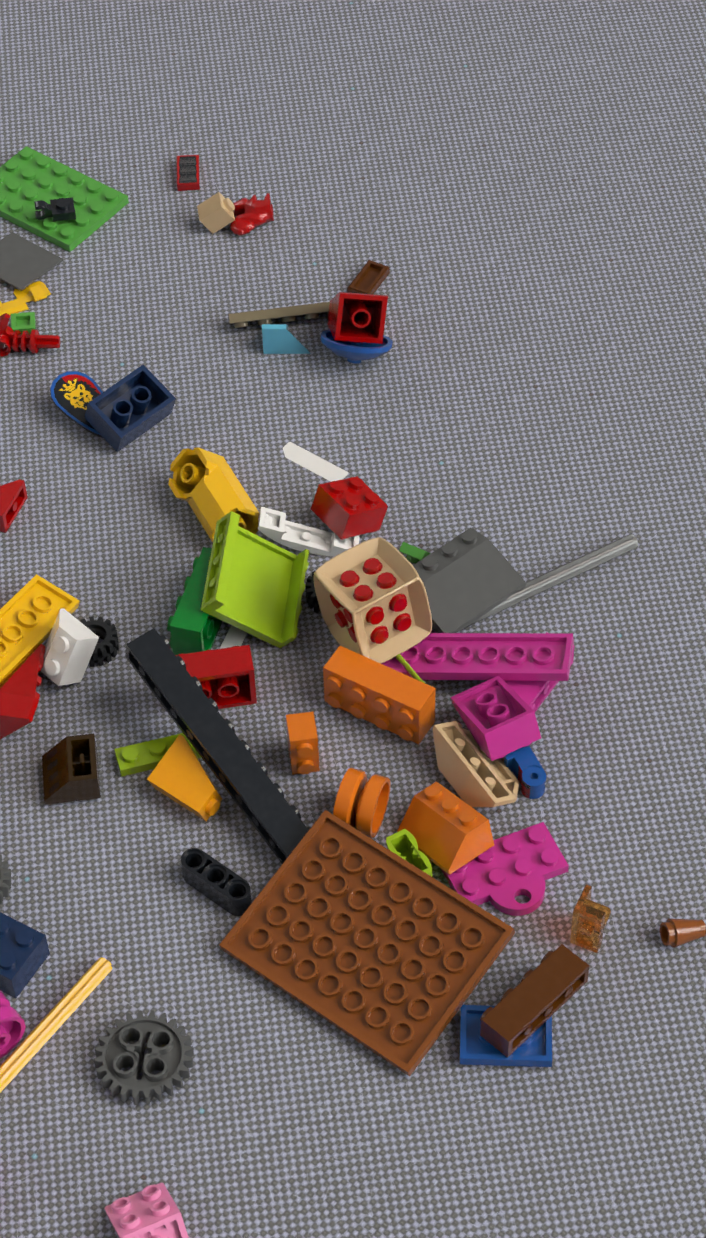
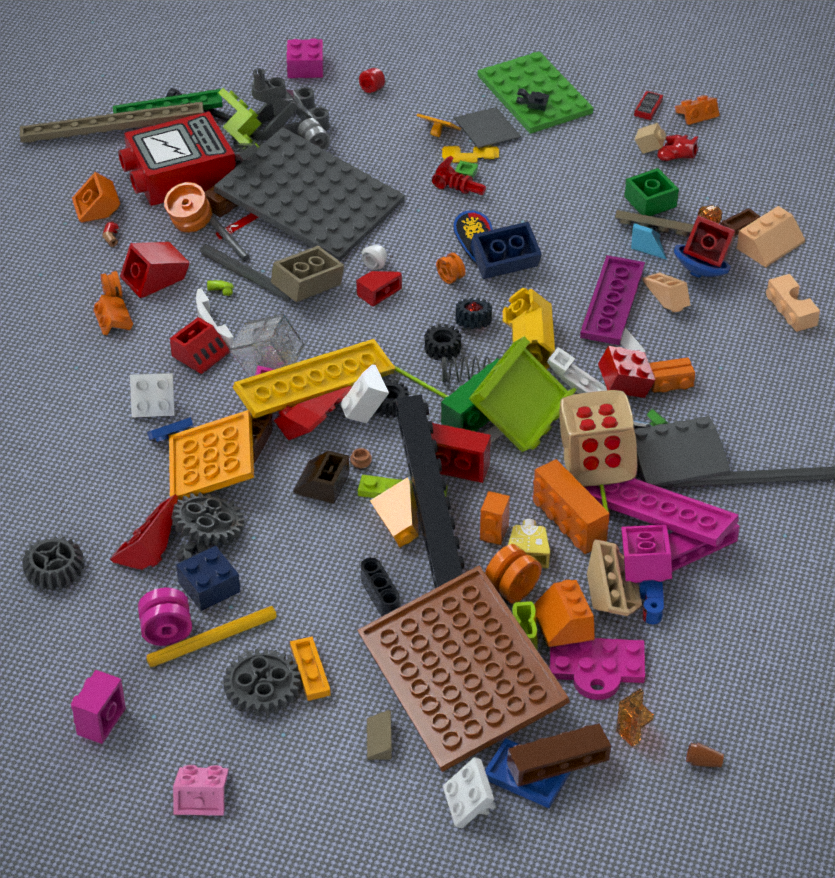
camera: 25 degrees right, 5 degrees down
(75, 452) = (450, 268): none -> orange wheel
(102, 728) = (360, 458): none -> nougat plate
(112, 537) = (444, 334): none -> black tyre
(124, 608) = (420, 382): none -> lime piece
(133, 499) = (473, 313): none -> black wheel
(135, 570) = (444, 368): none -> dark grey piece
(199, 1023) = (310, 668): none -> light orange plate
(248, 159) = (698, 110): none -> orange bracket
(254, 279) = (651, 192): none -> green brick
(281, 425) = (612, 300): none -> magenta plate
(316, 1064) = (379, 736): none -> dark tan slope
(332, 284) = (711, 213): none -> clear orange cone
(337, 391) = (669, 291): none -> light nougat slope
(355, 752) = (532, 540): none -> light yellow torso
(400, 490) = (672, 375): none -> orange brick
(414, 286) = (770, 237): none -> light nougat slope
(460, 1090) = (469, 793): none -> white plate
(494, 367) = (798, 313): none -> light nougat arch

